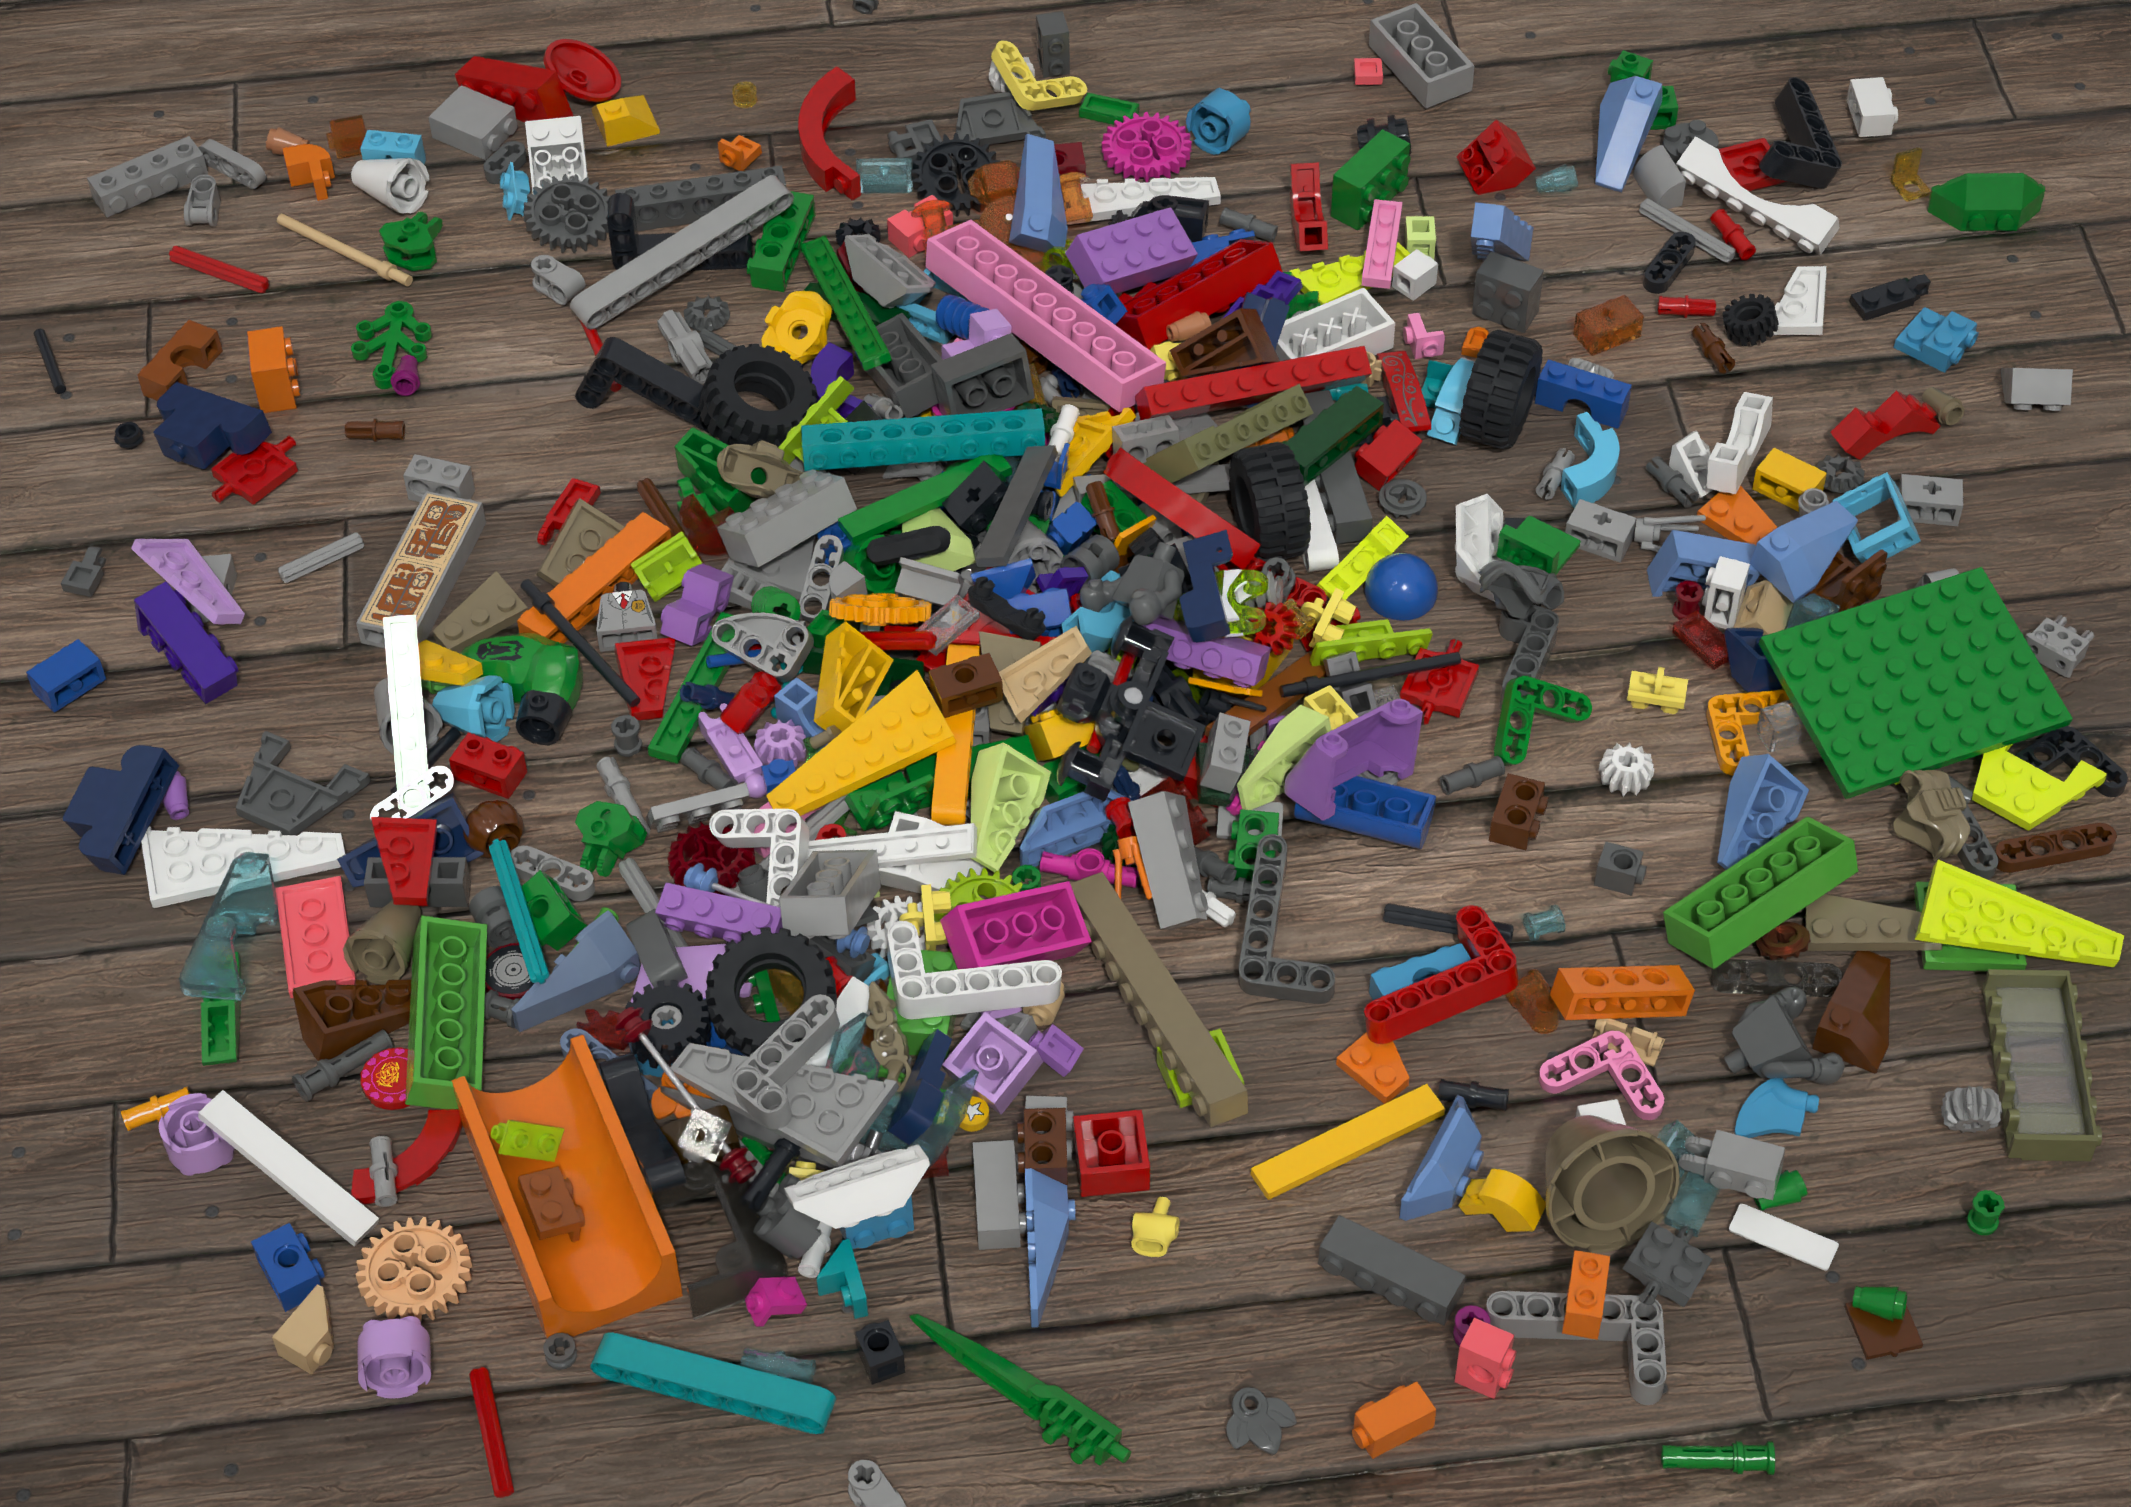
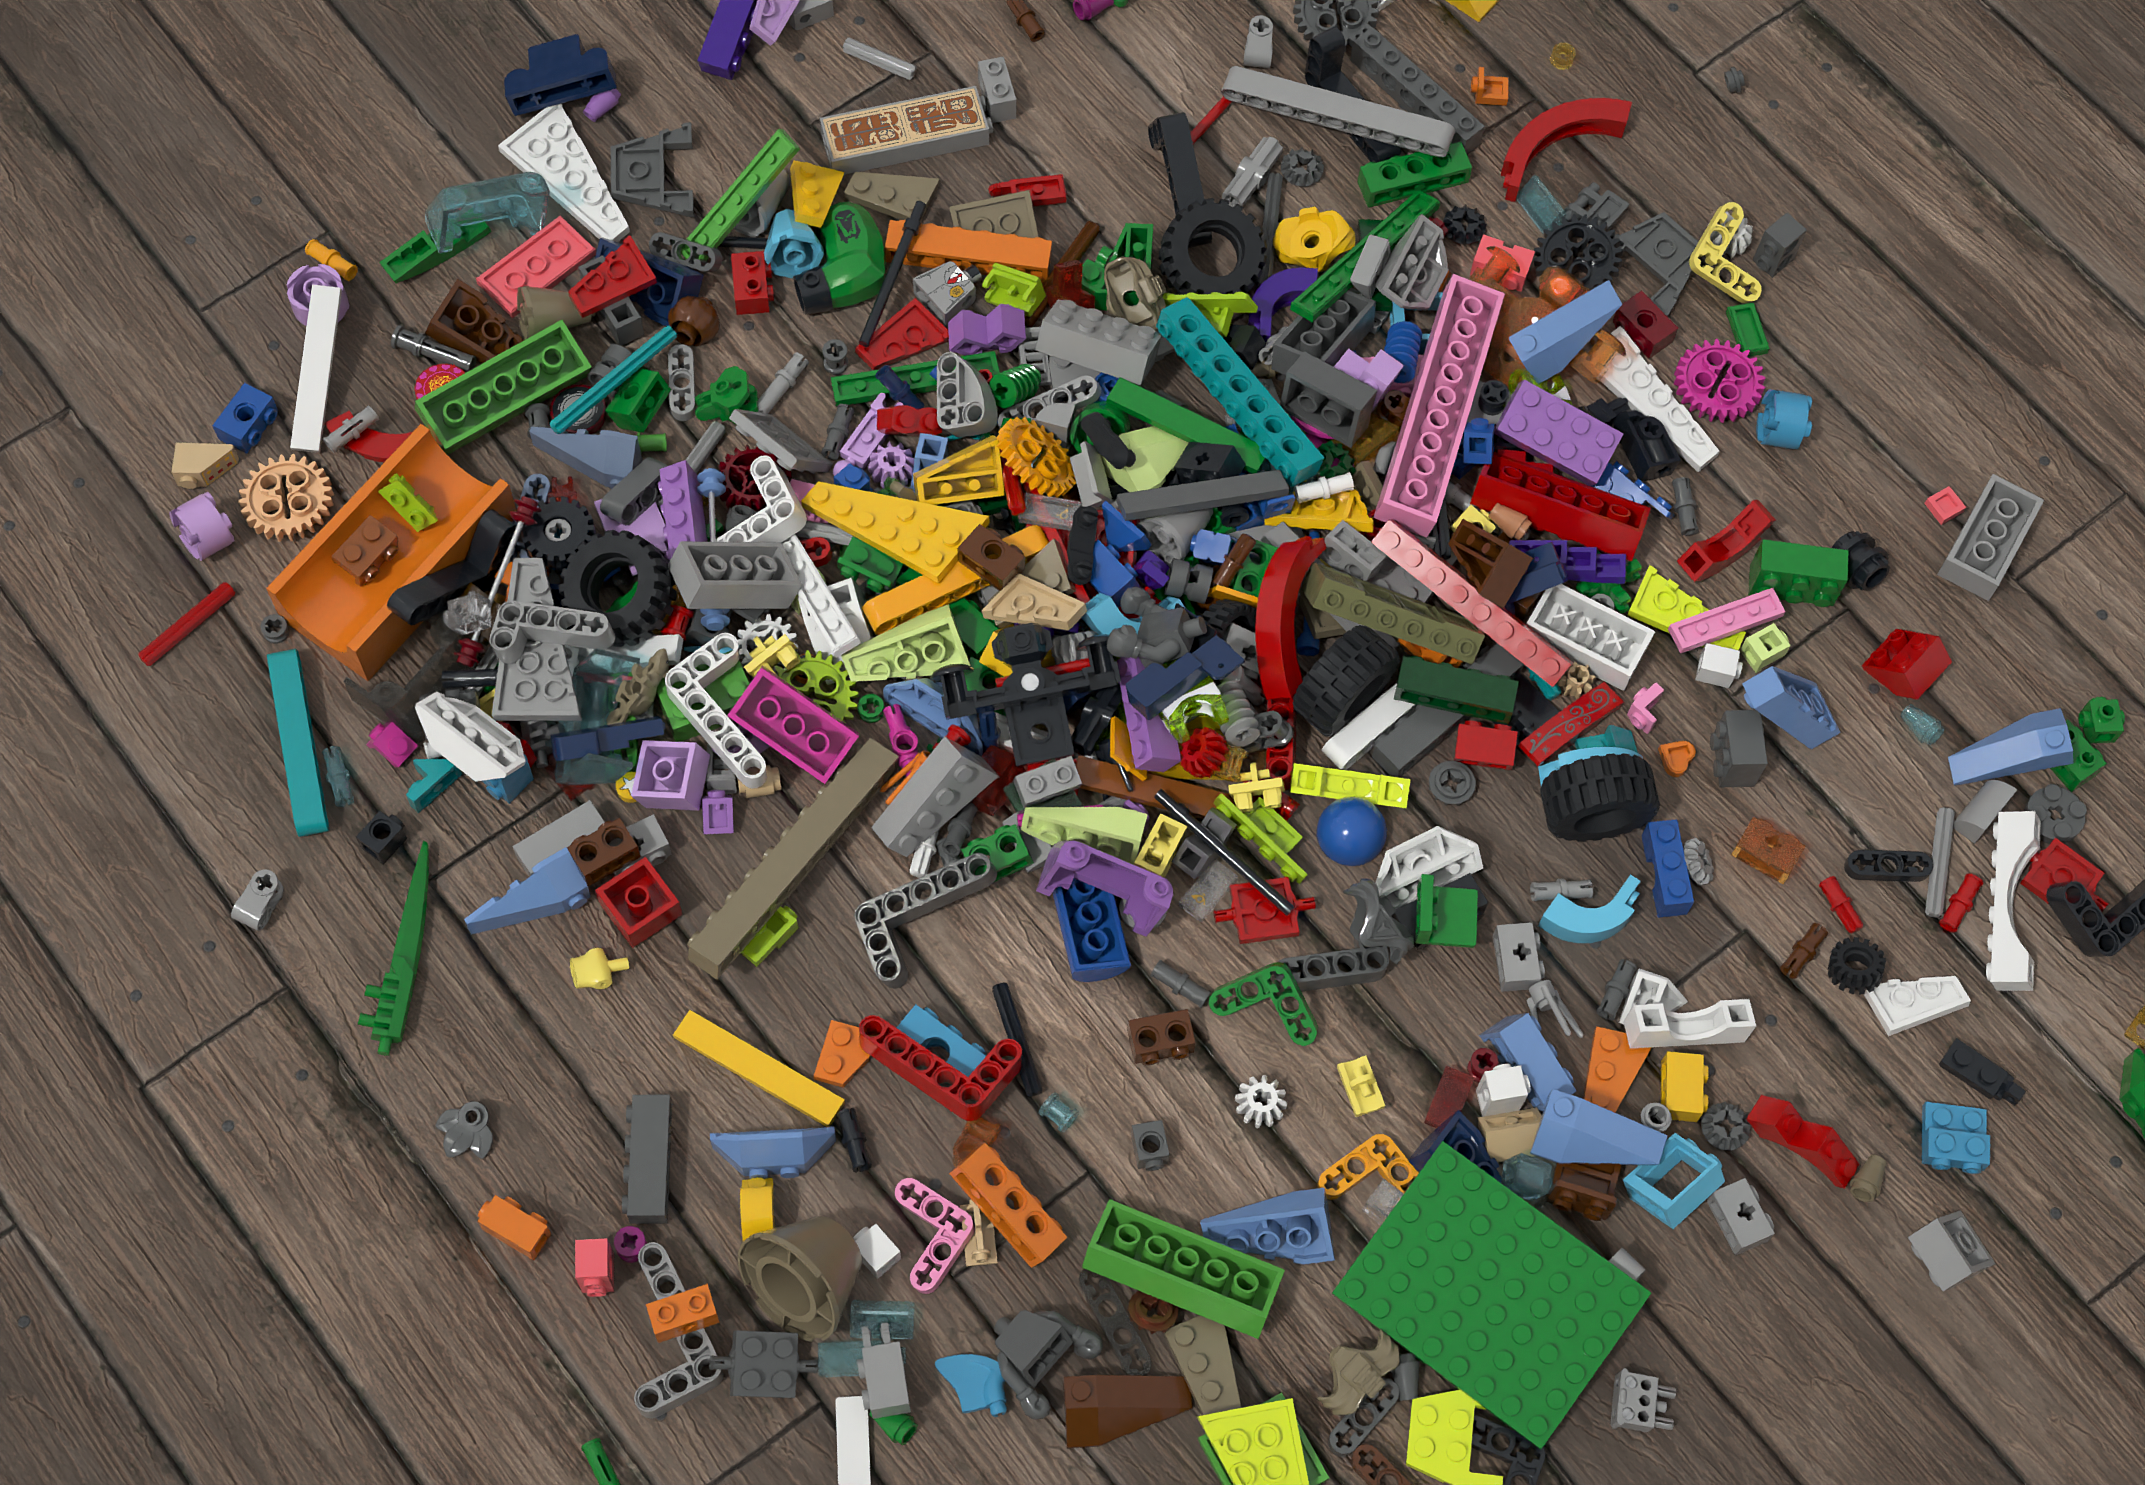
camera: 55 degrees right, 15 degrees up
(865, 295) = (1370, 265): none -> light grey slope

